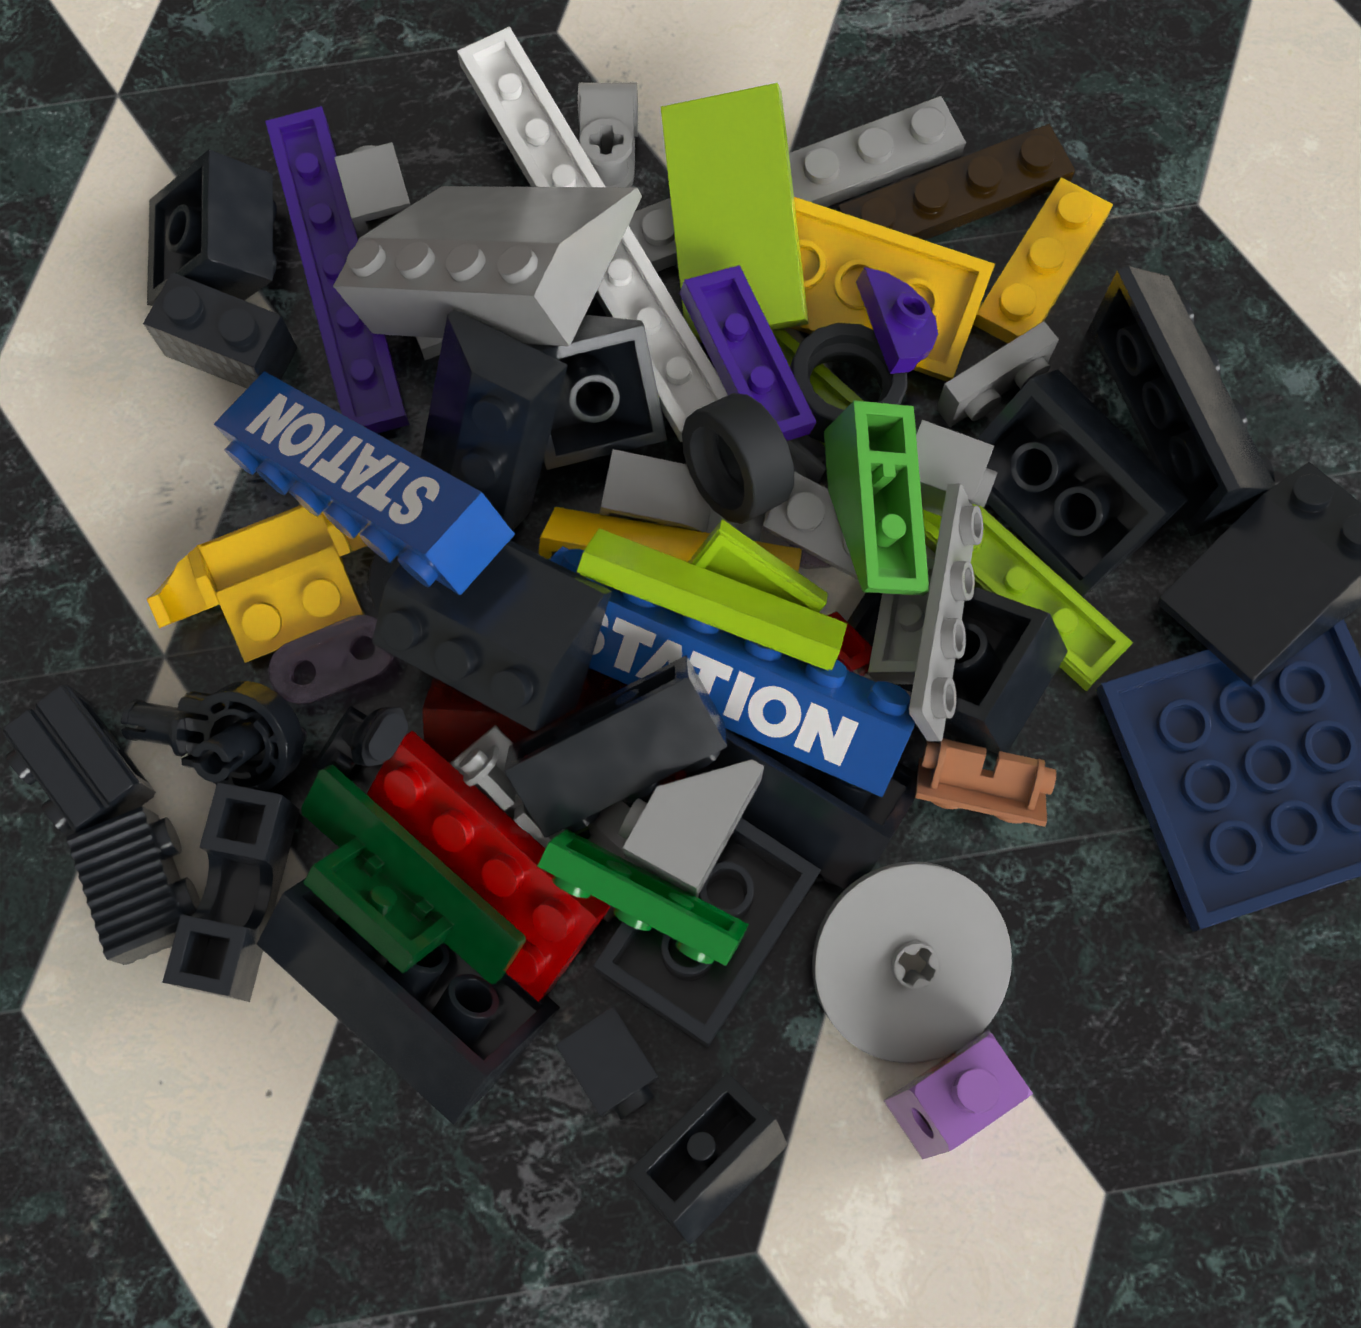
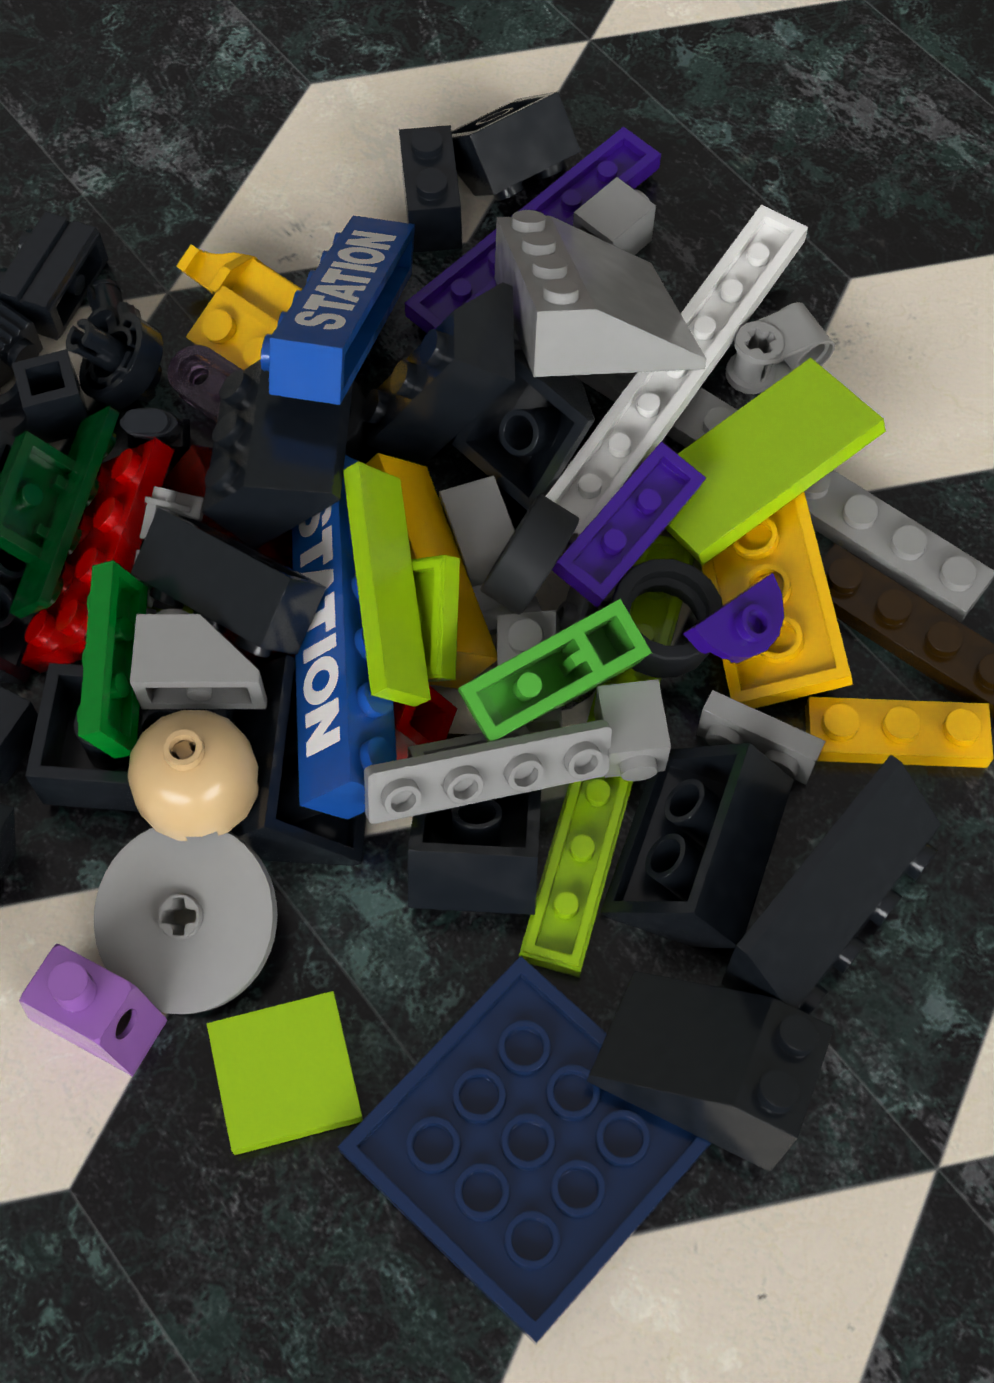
camera: 60 degrees right, 10 degrees down
(776, 885) = (193, 775): none -> tan cylinder
(954, 778) = (377, 920): nougat hinge -> none
(1097, 945) = (284, 1073): none -> lime tile

